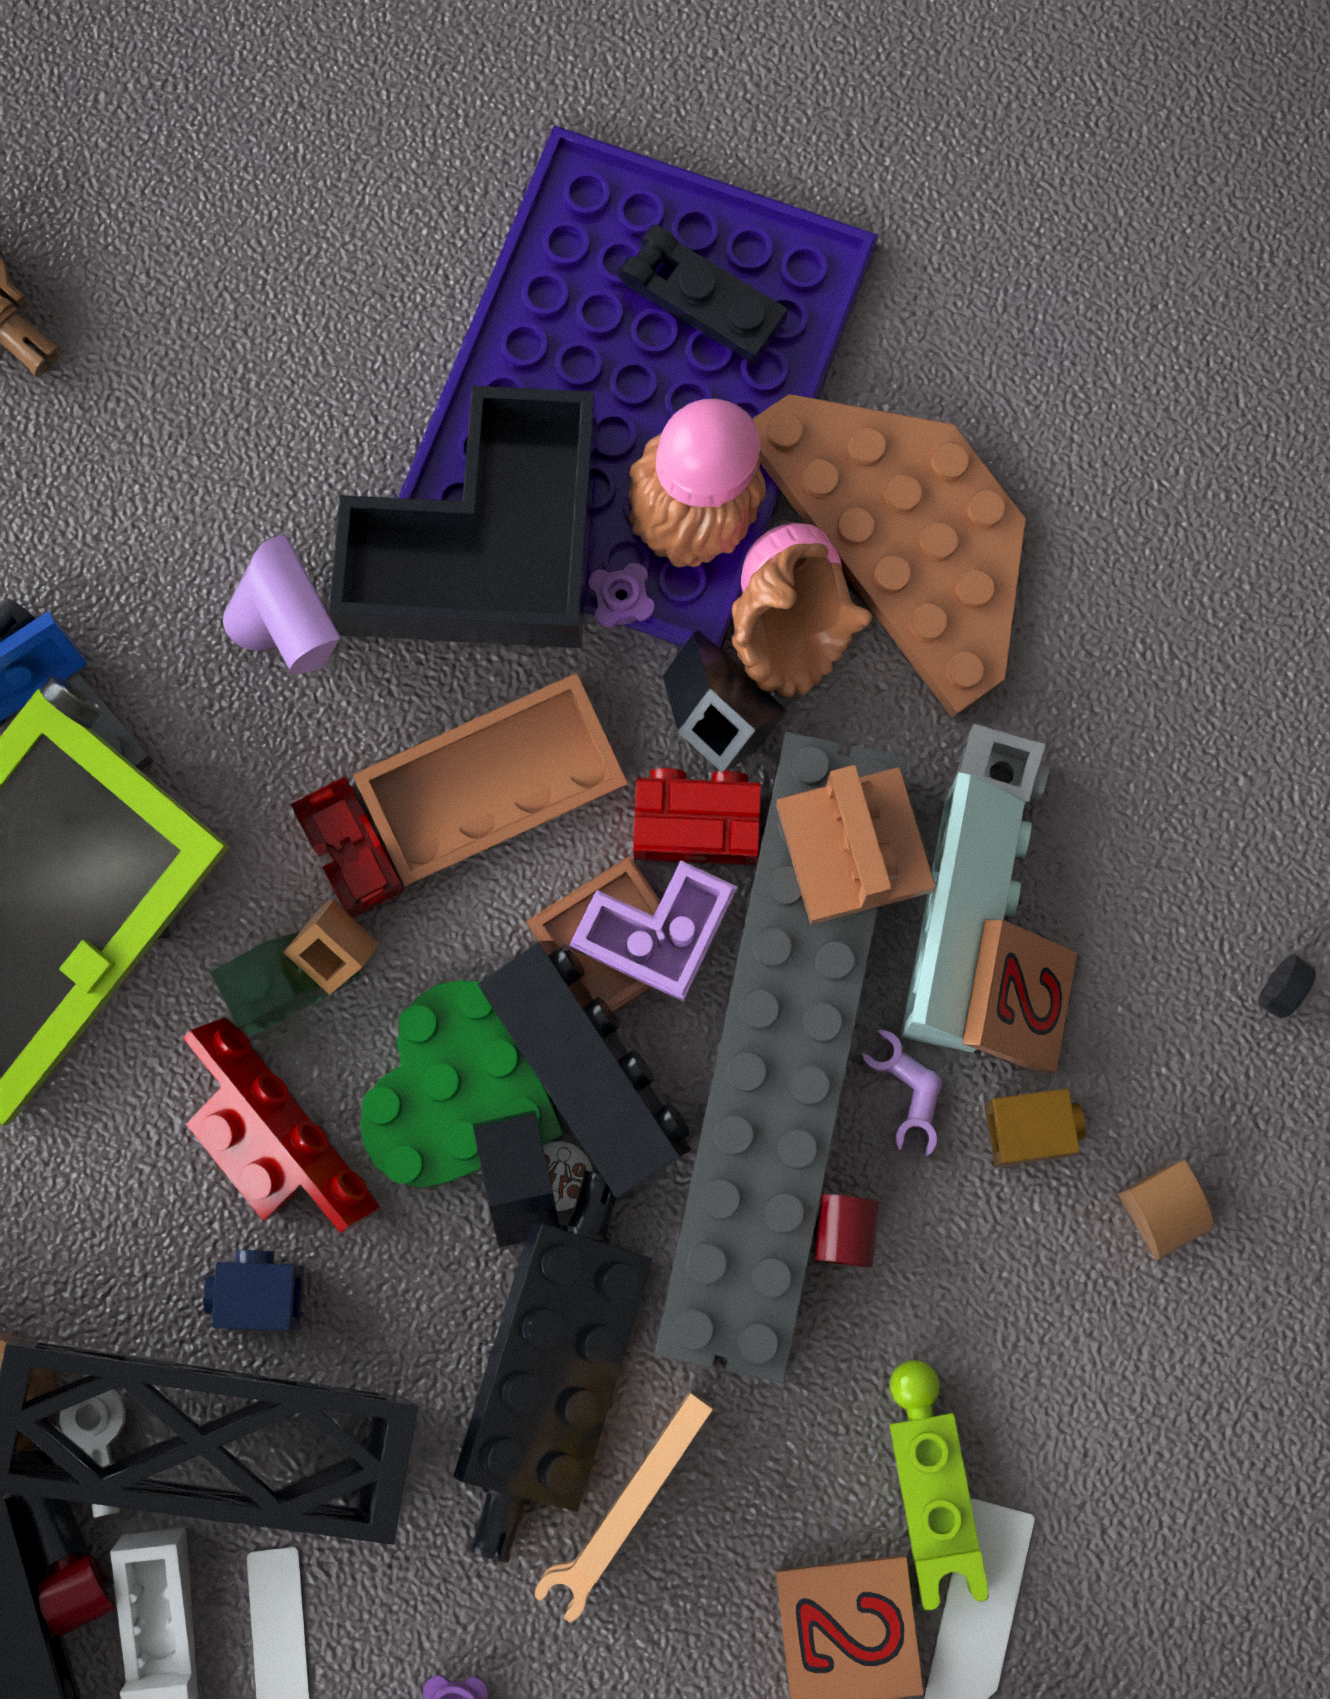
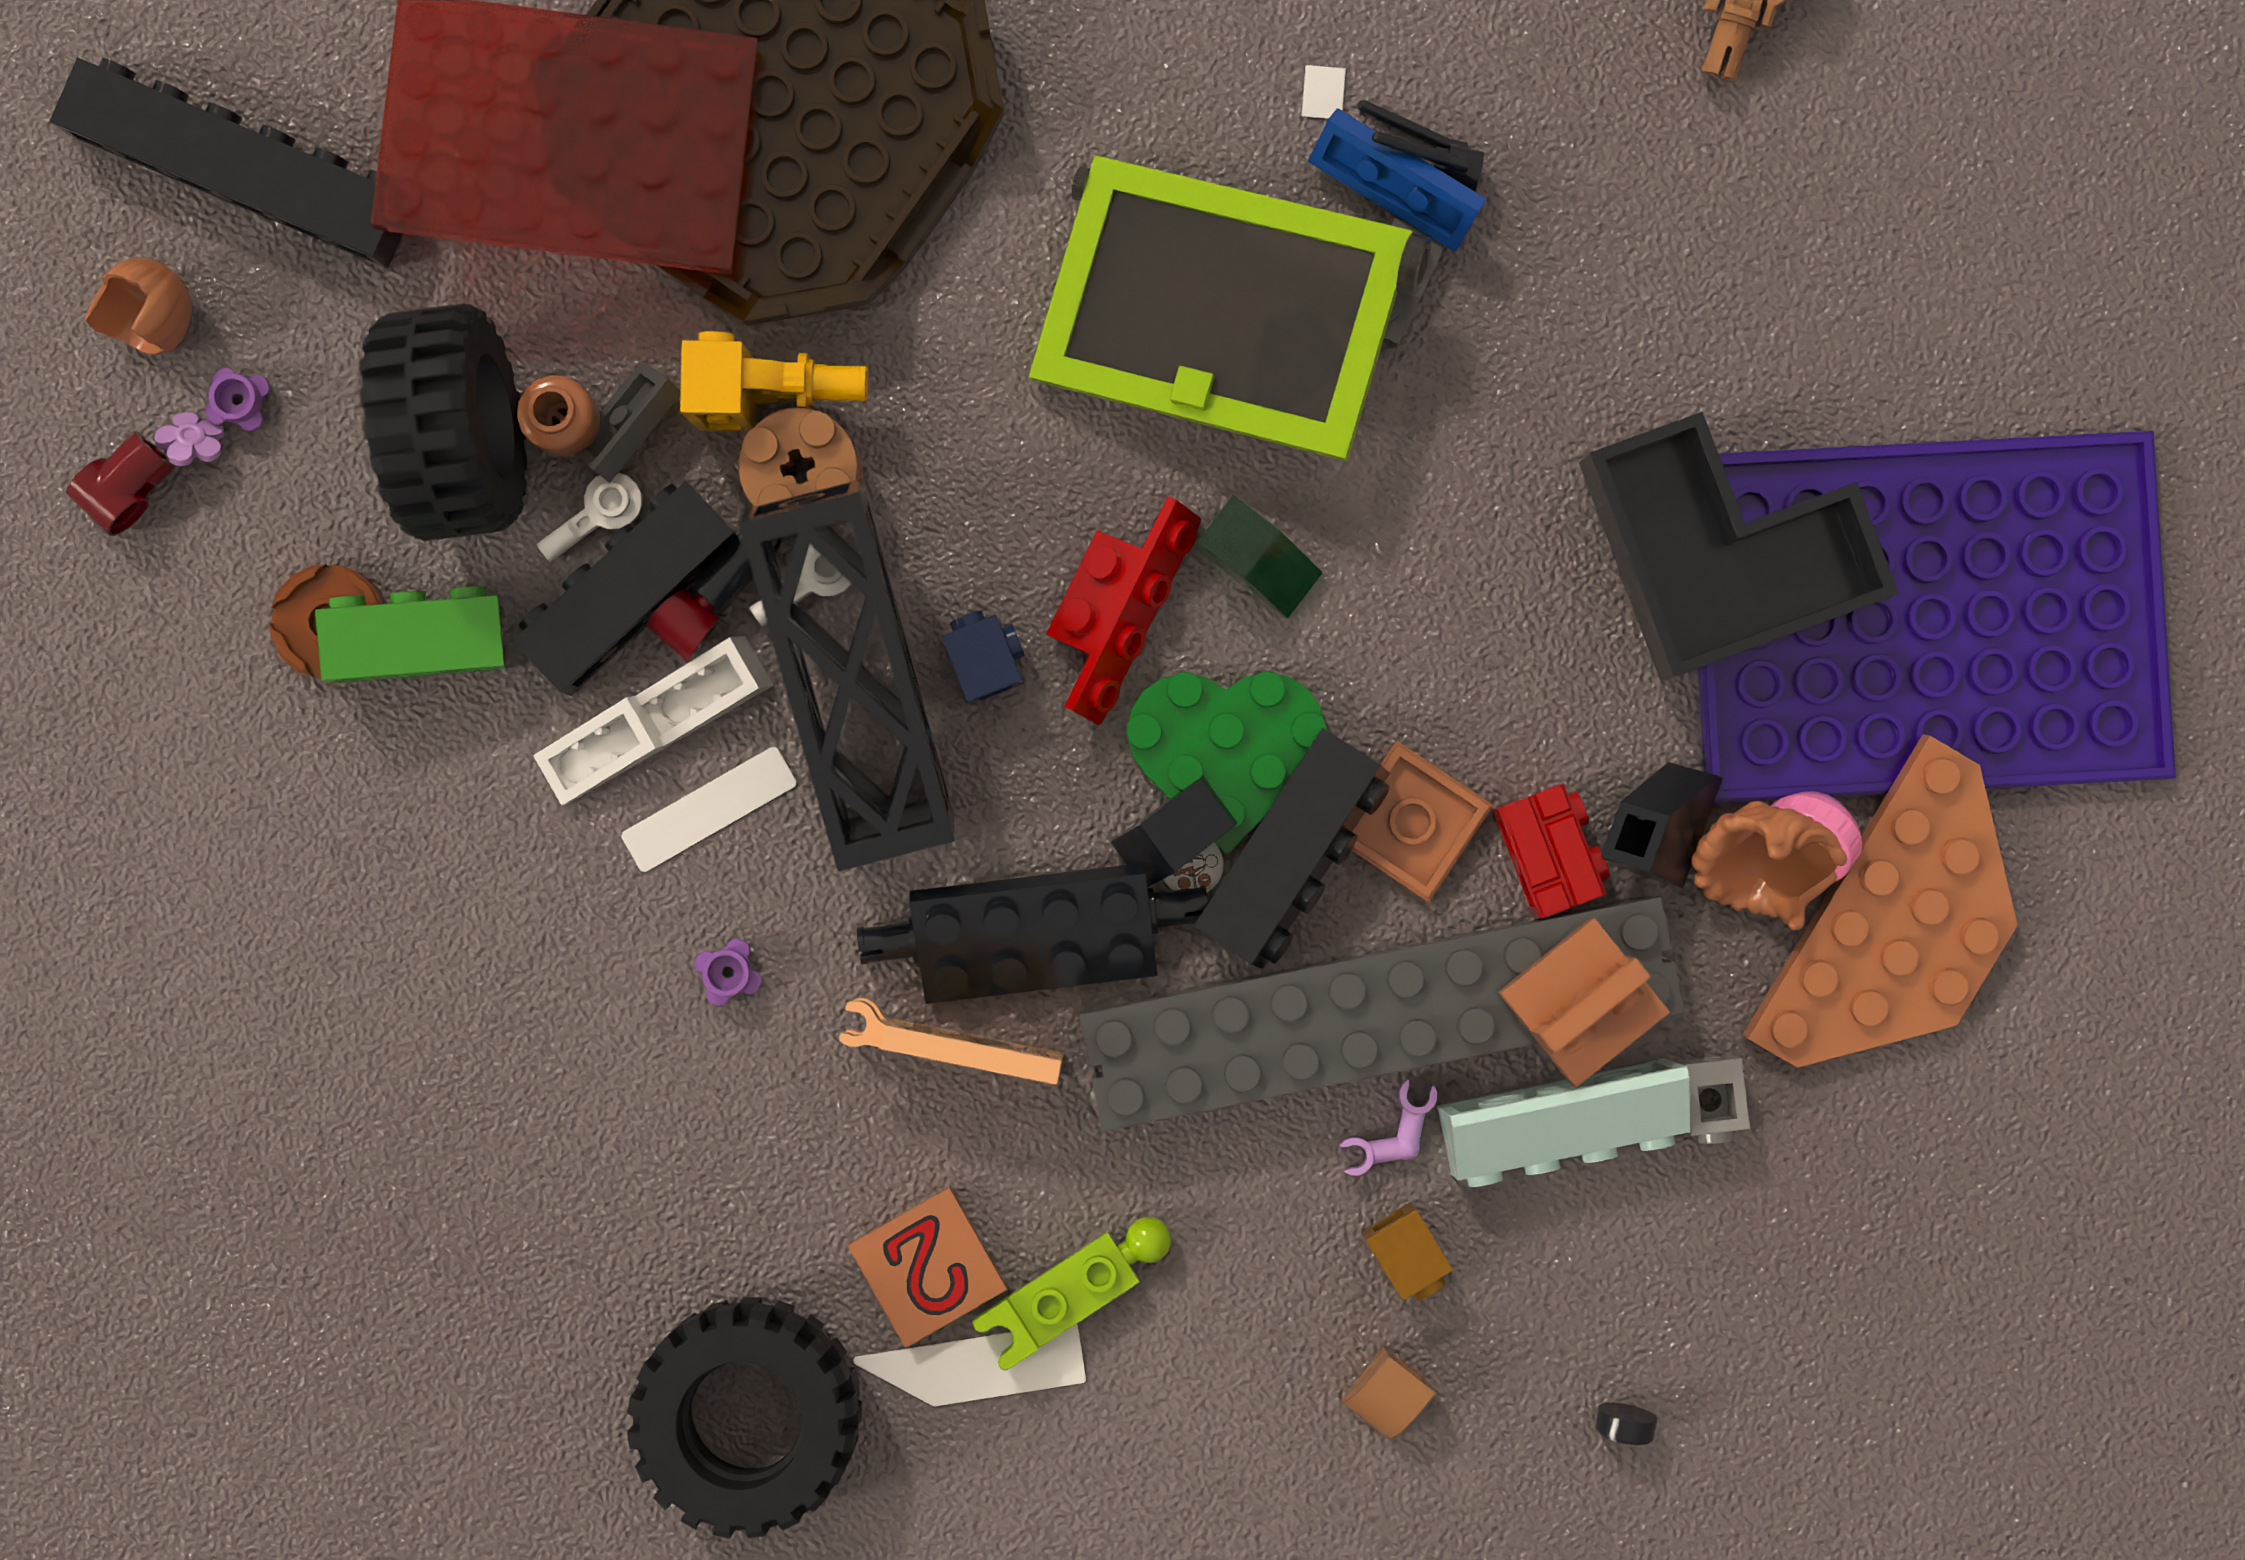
camera: 65 degrees right, 10 degrees up
(281, 609) = (1582, 402): lavender brick -> none
(331, 947) = (1300, 587): medium nougat brick -> none
(349, 837) = (1399, 558): red piece -> none
(490, 779) = (1508, 653): nougat slope -> none
(621, 612) = (1707, 692): medium lavender plate -> none
(662, 947) = (1421, 870): lavender brick -> none
(698, 483) = (1855, 722): hair -> none
(704, 295) = (2043, 645): black plate -> none
(846, 1230) = (1250, 1131): dark red piece -> none
(1019, 996) = (1515, 1196): nougat tile -> none

